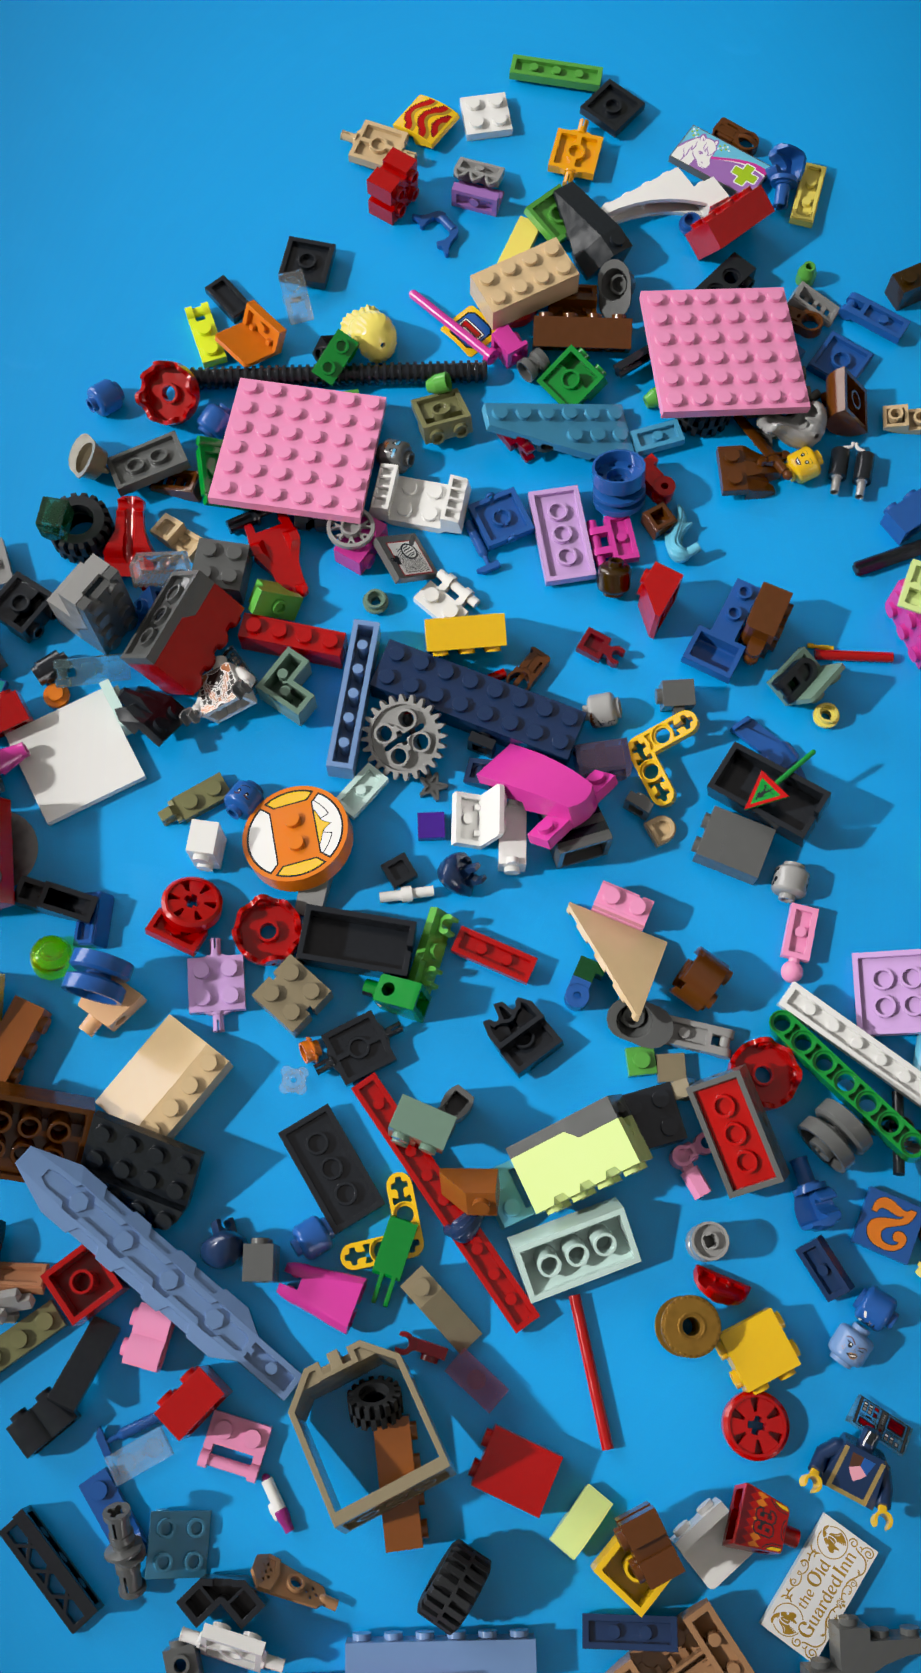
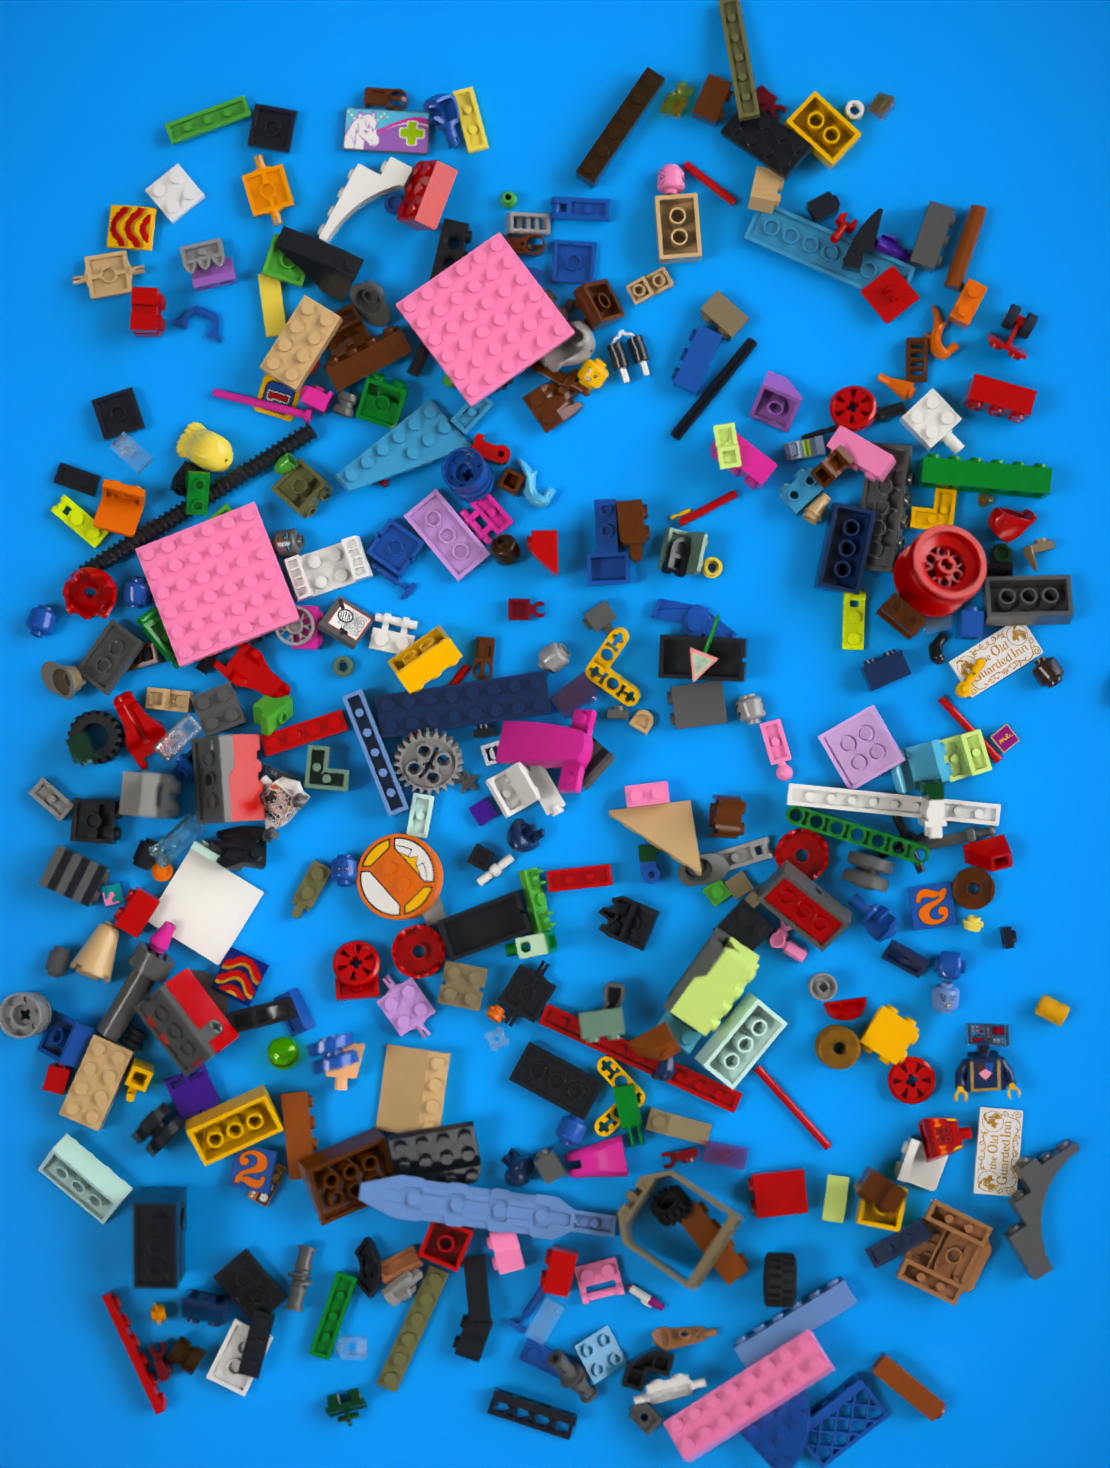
camera: 30 degrees left, 15 degrees up
(60, 848) = (239, 976): none -> slope
(206, 844) = (341, 919): white brick -> none

